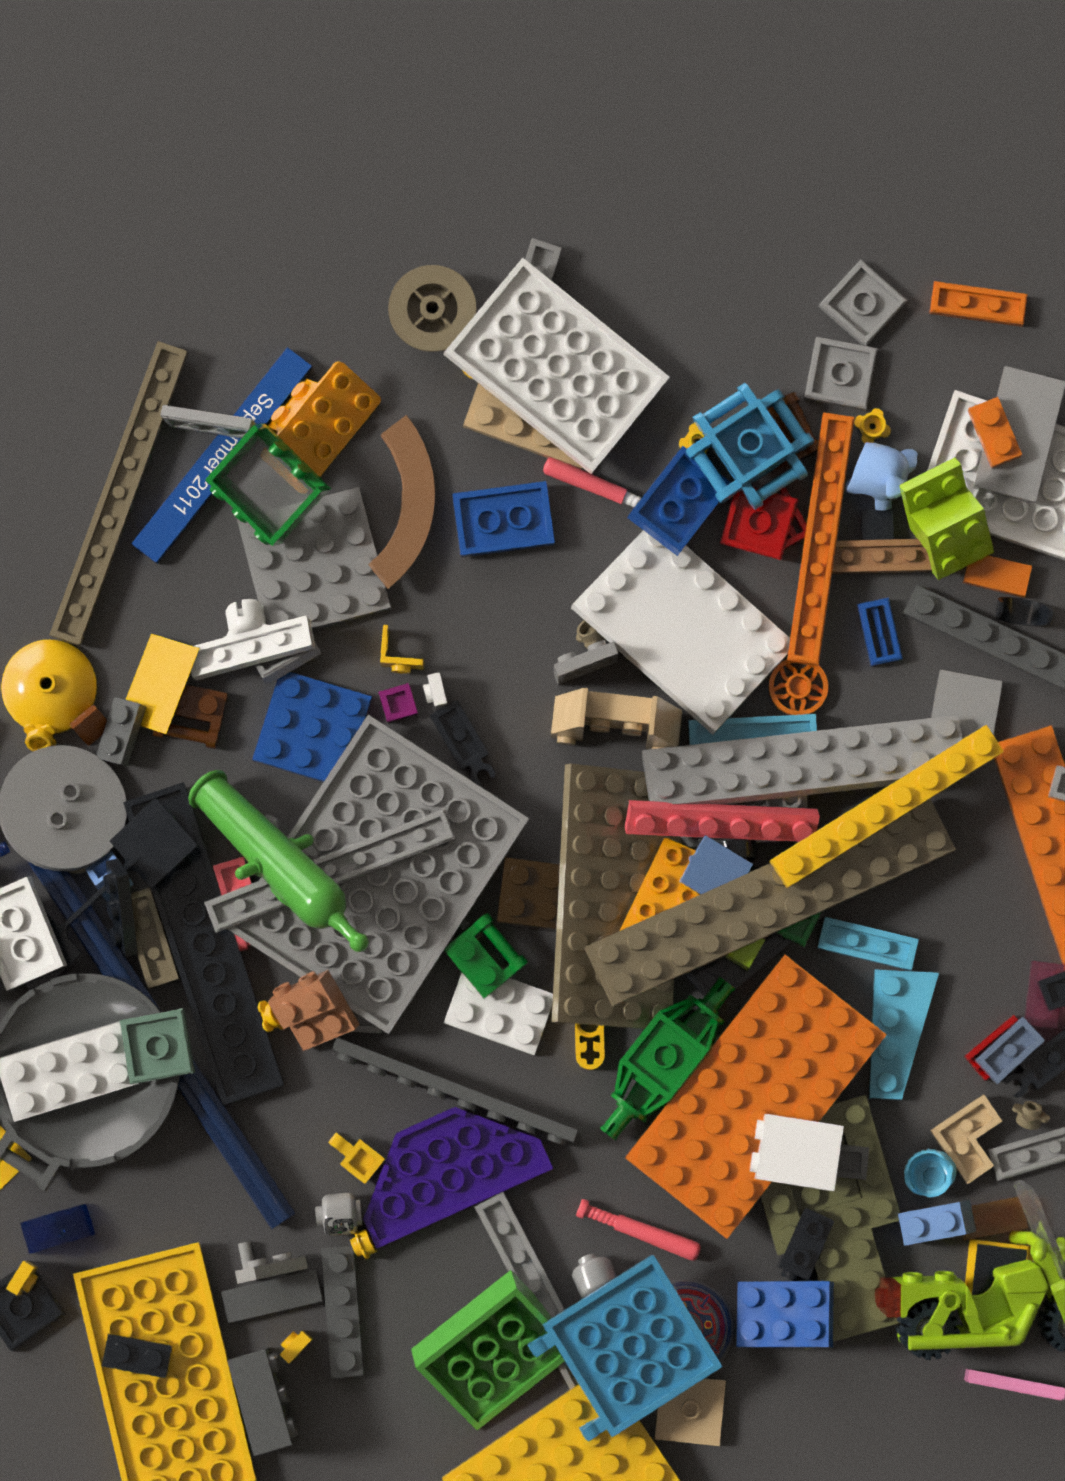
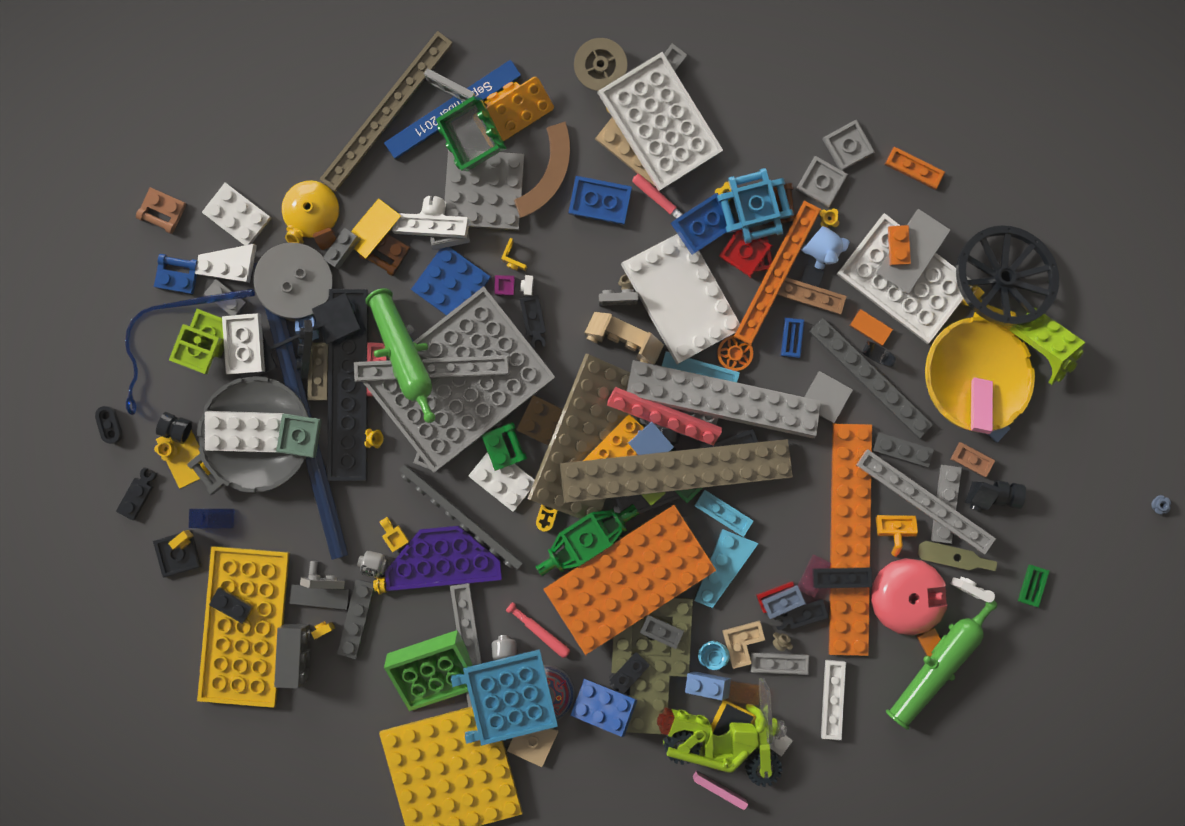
camera: 20 degrees right, 5 degrees up
(313, 1009) = (395, 444): nougat plate -> none
(797, 1152) = (641, 621): white brick -> none
(886, 806) = (761, 440): yellow plate -> none
(946, 518) = (854, 285): lime bracket -> none

